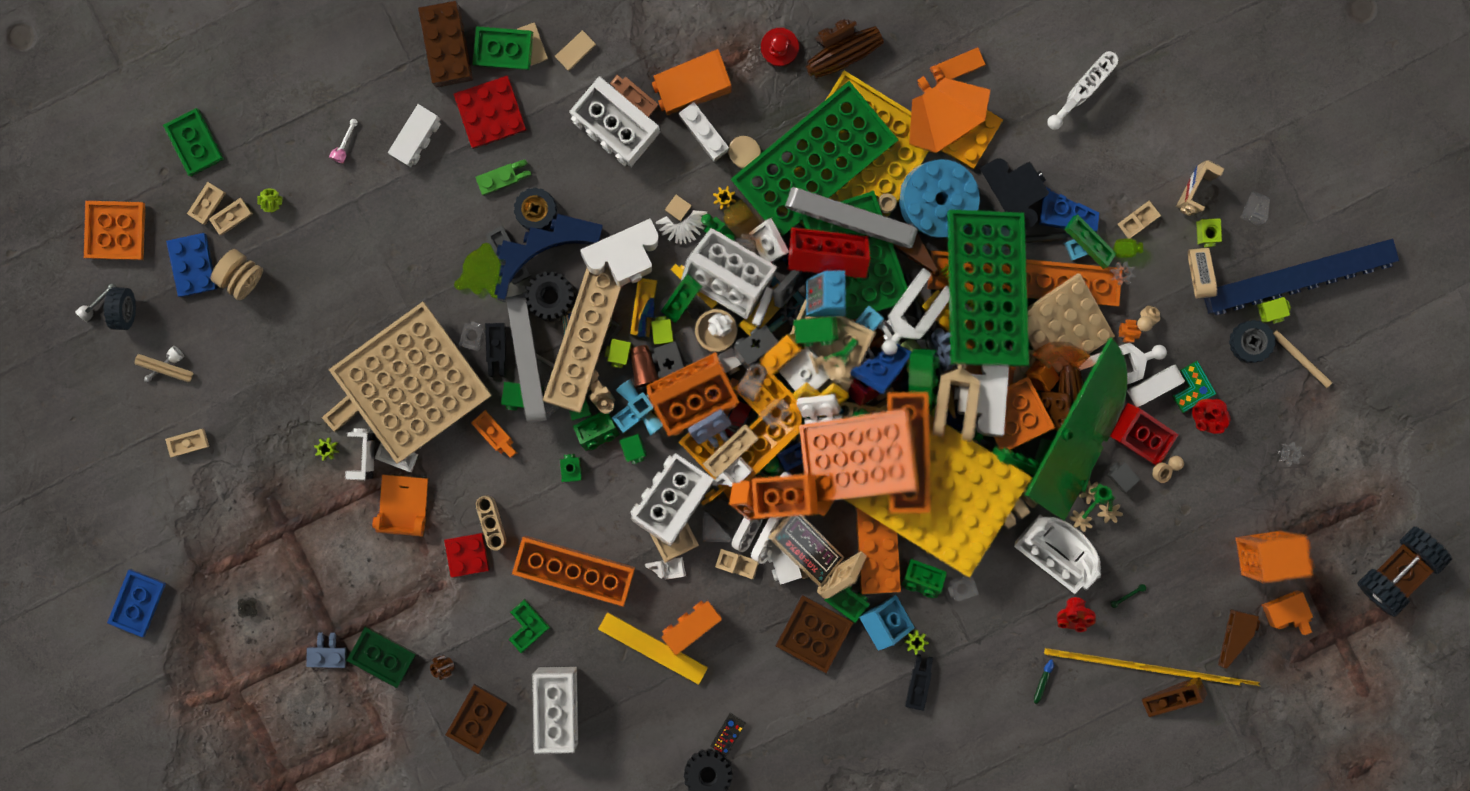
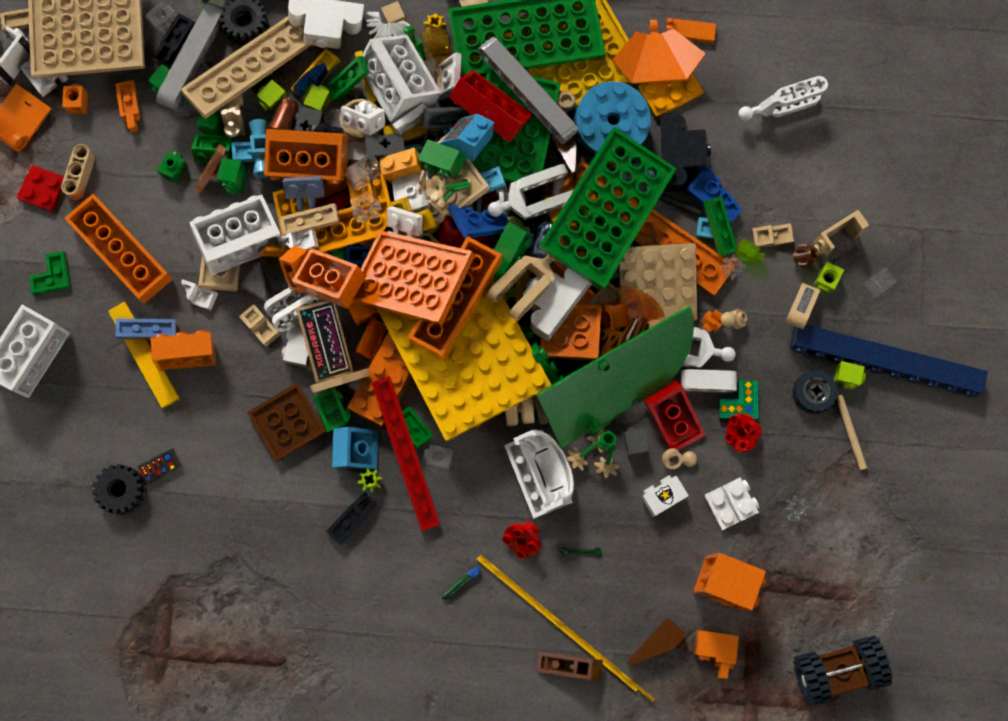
camera: 30 degrees right, 10 degrees down
(450, 463) = (77, 106): none -> orange brick
(609, 451) = (210, 172): none -> nougat hinge
(643, 626) = (144, 328): none -> medium blue plate
(691, 361) = (325, 128): none -> black wheel
(724, 337) = (364, 123): none -> white bracket
(843, 519) = (371, 339): none -> orange plate
(935, 603) = (405, 453): none -> red plate
(1173, 508) = (664, 496): none -> white brick
(1178, 223) = (804, 255): none -> reddish brown gear
(1233, 481) = (731, 503): none -> white plate

